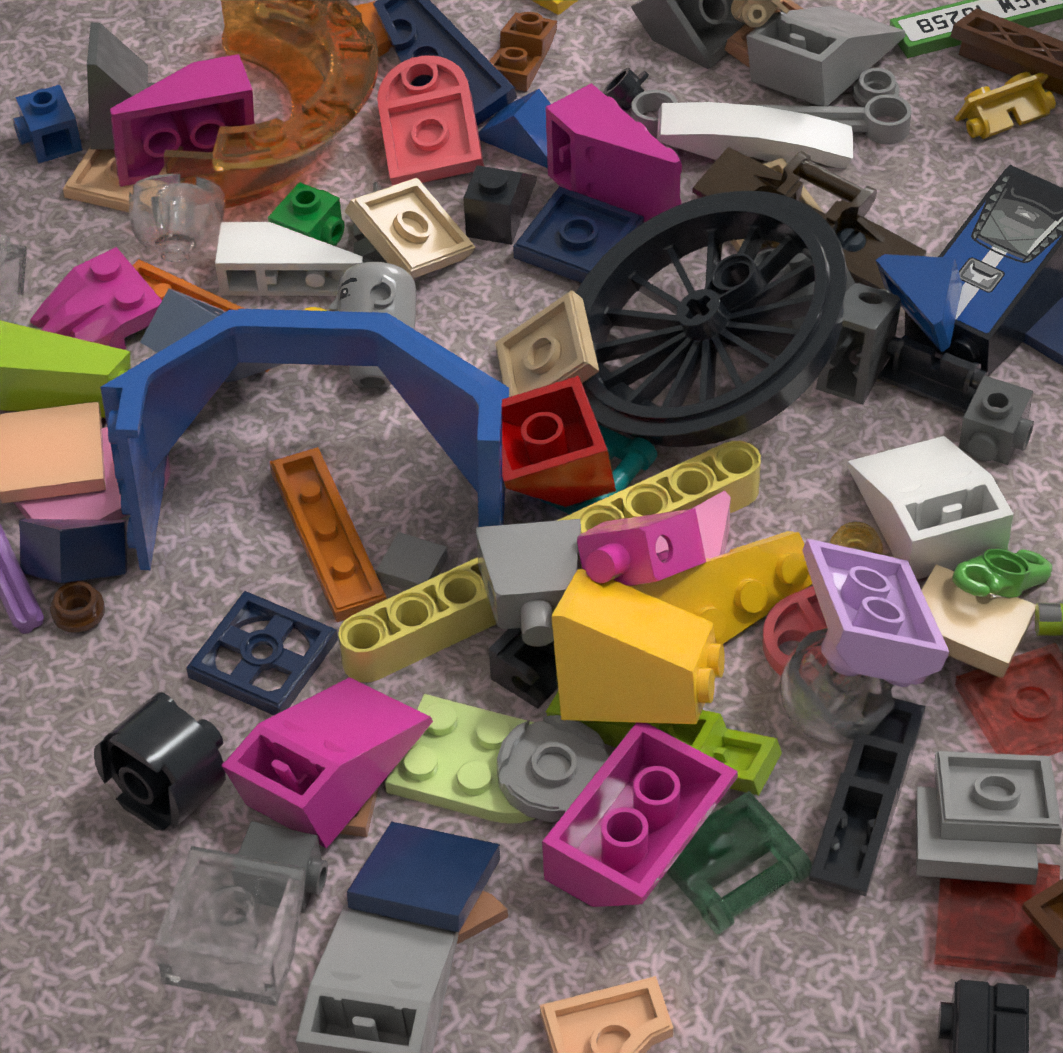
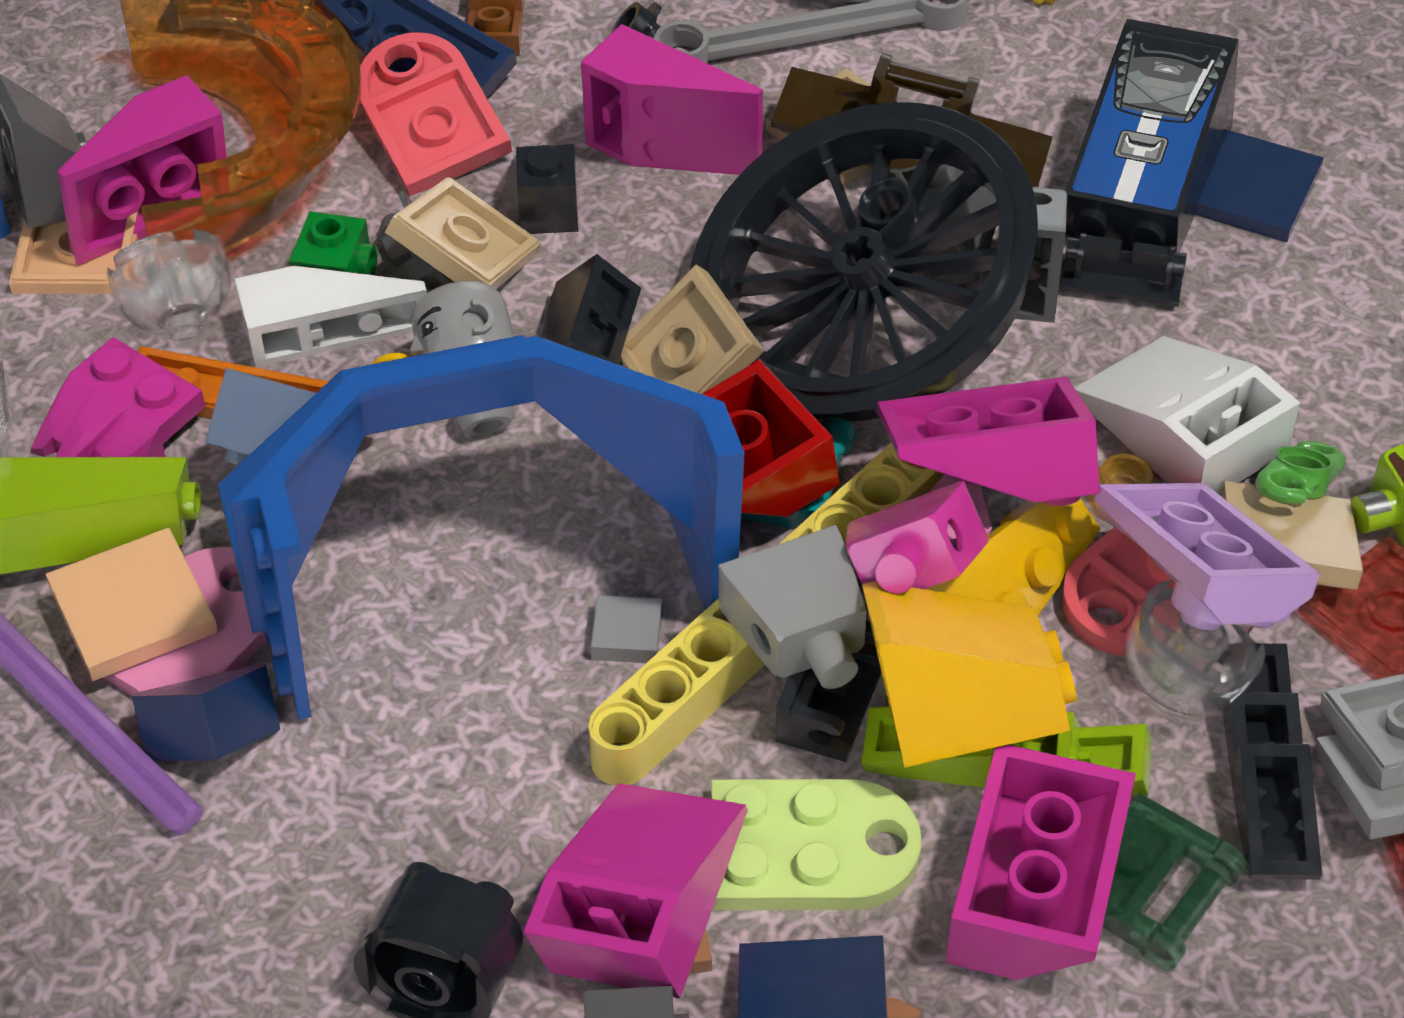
camera: 20 degrees left, 0 degrees up
(76, 595) = (238, 769): reddish brown plate -> none
(238, 684) = (481, 826): dark blue piece -> none
(327, 533) = (510, 619): orange tile -> none
(482, 316) = (592, 310): none -> black hinge
(520, 128) = (542, 95): blue slope -> none
(548, 765) = (905, 828): light grey tile -> none
(573, 234) = (654, 204): dark blue plate -> none
(745, 484) = (1008, 437): none -> dark pink slope
(753, 131) = (813, 42): white slope -> none
(927, 292) = (1093, 176): blue slope -> none
(997, 432) = (1217, 305): dark grey brick -> none

